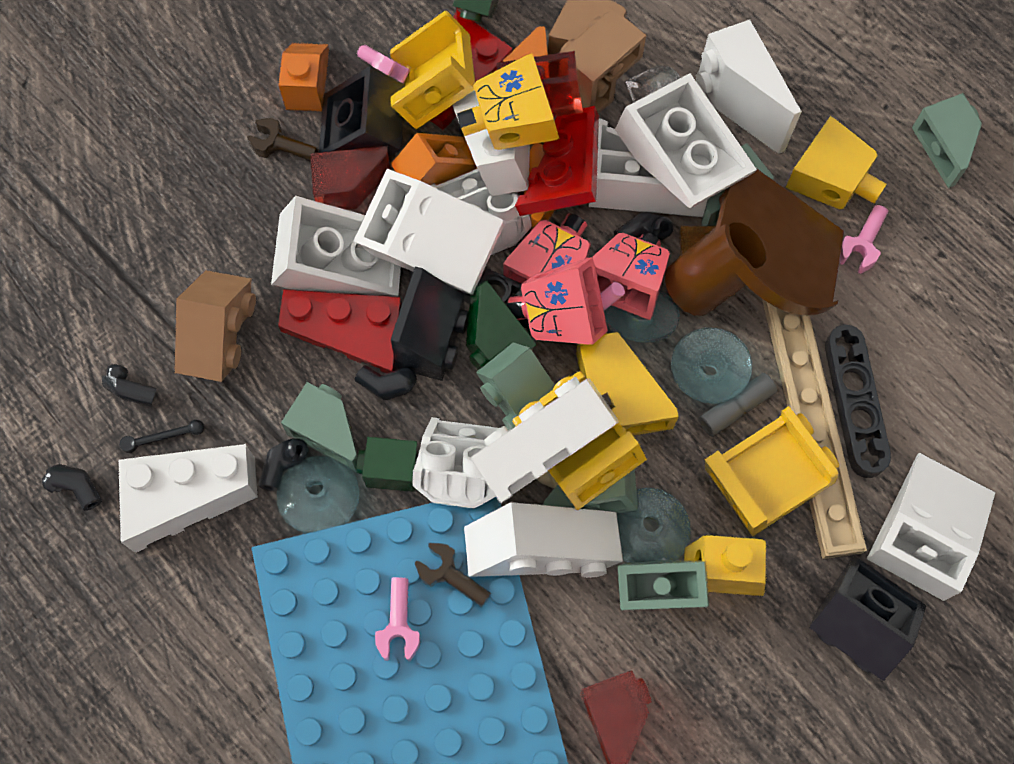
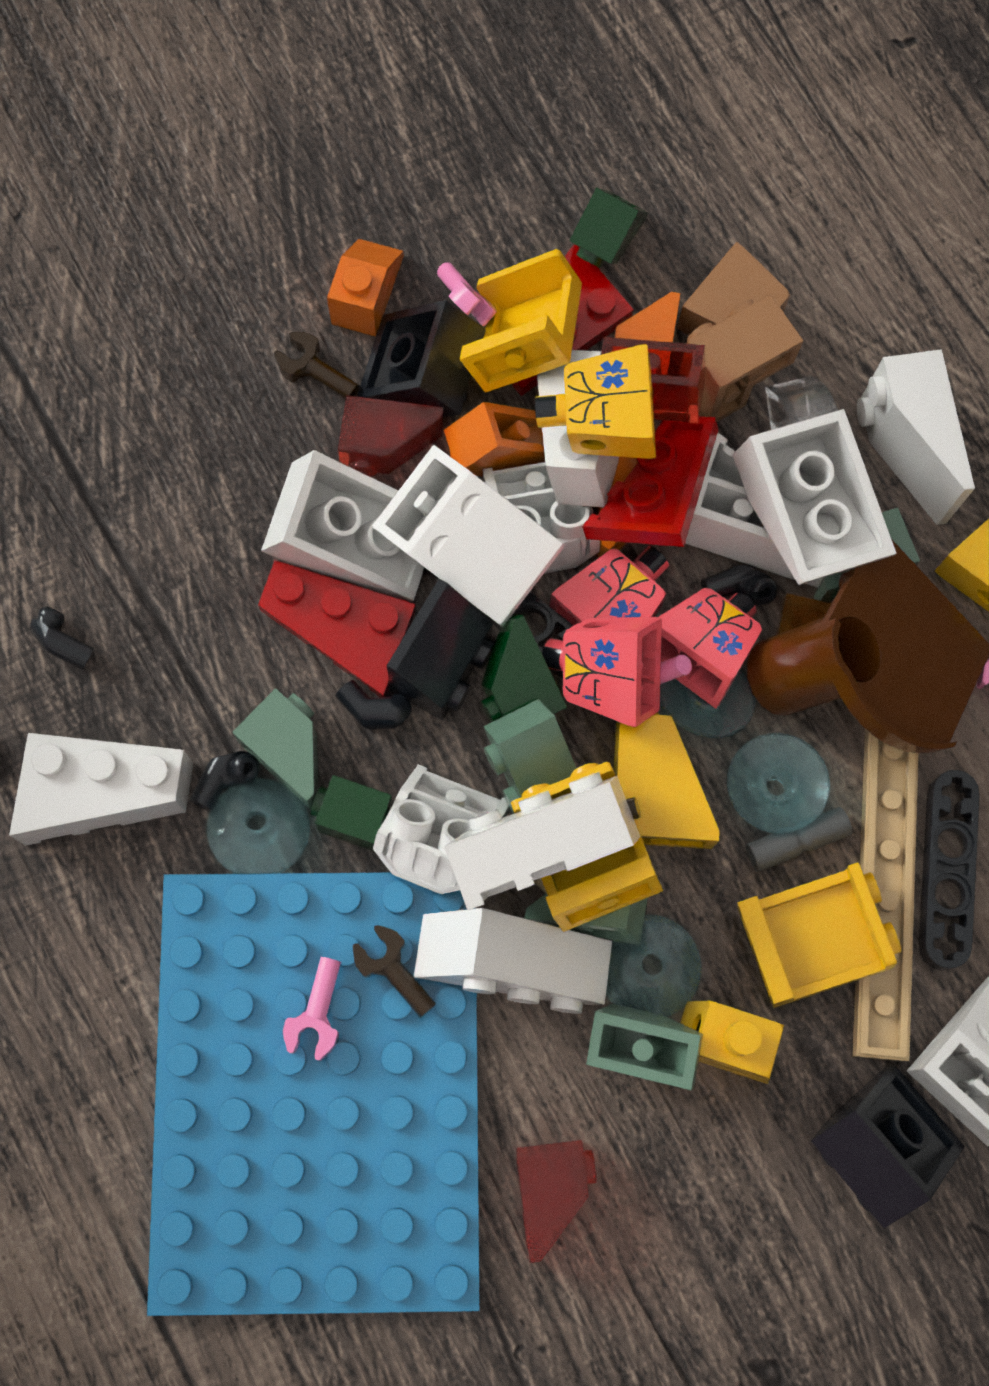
camera: 10 degrees right, 5 degrees up
(129, 444) = (48, 710): black hinge -> none
(208, 324) = (174, 584): medium nougat brick -> none

